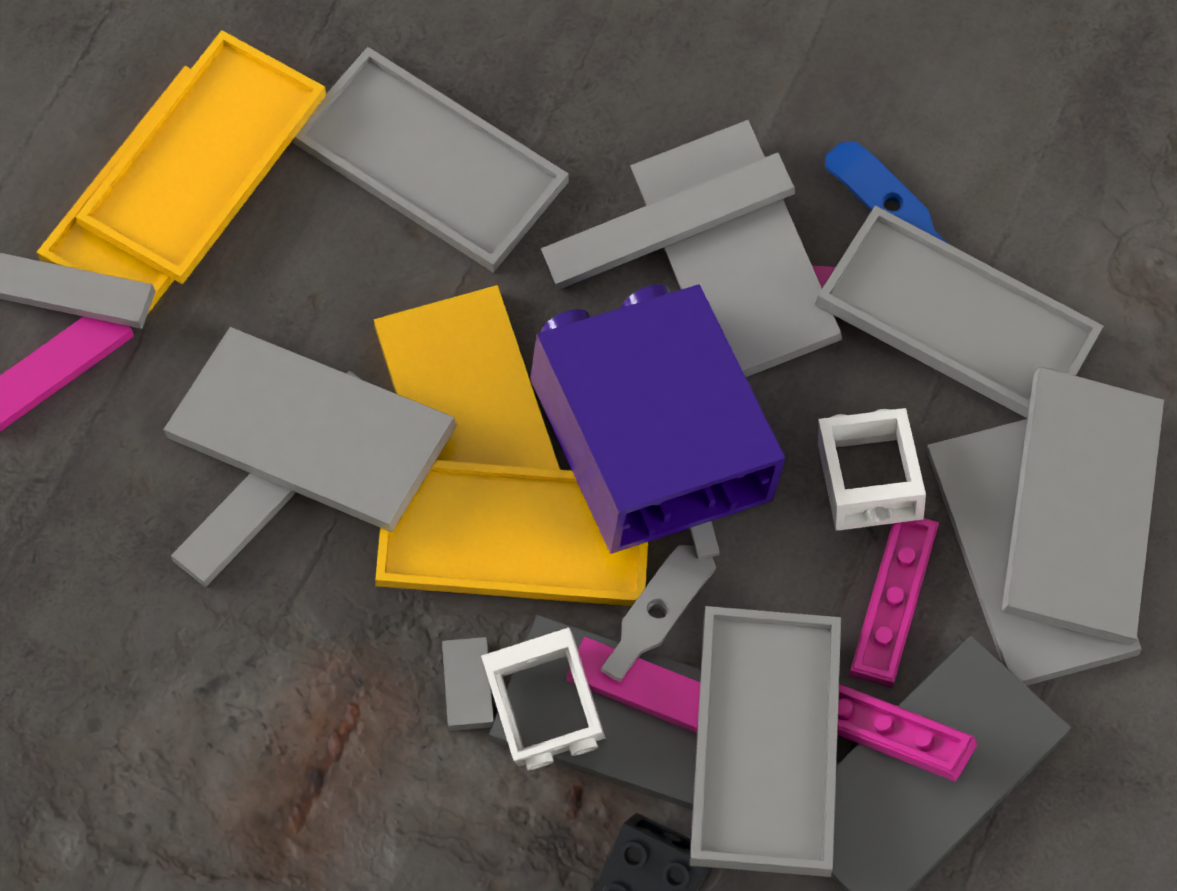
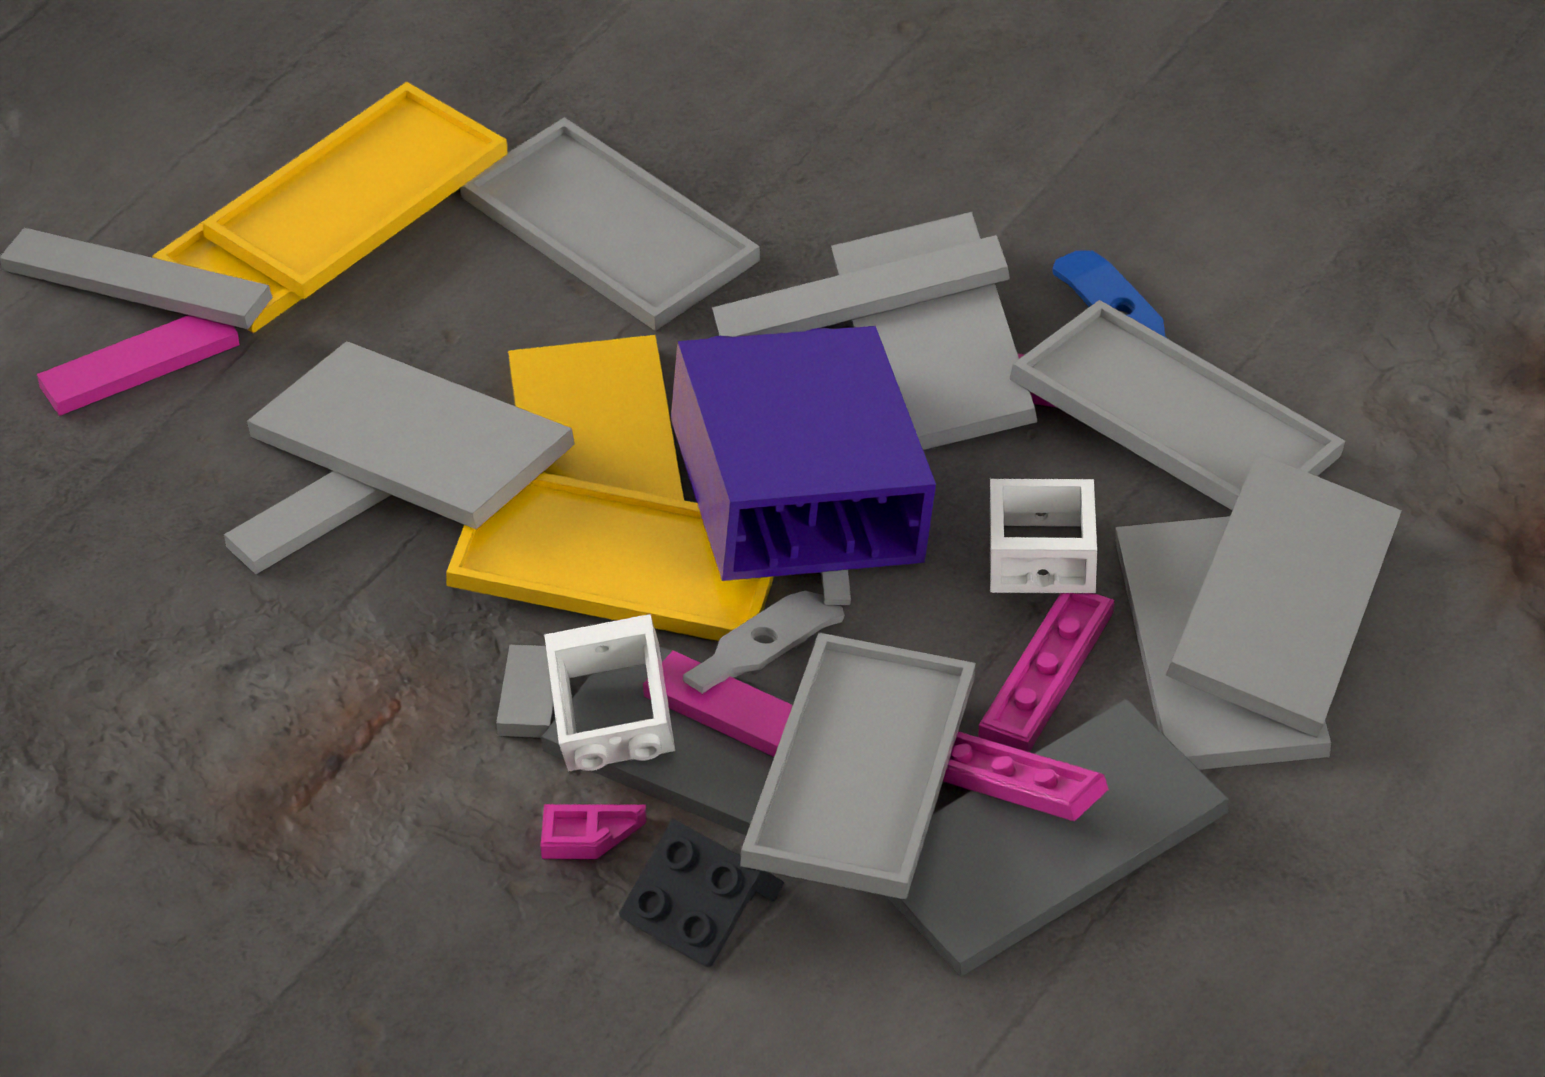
camera: 10 degrees right, 20 degrees down
(544, 821) = (587, 829): none -> dark pink tile

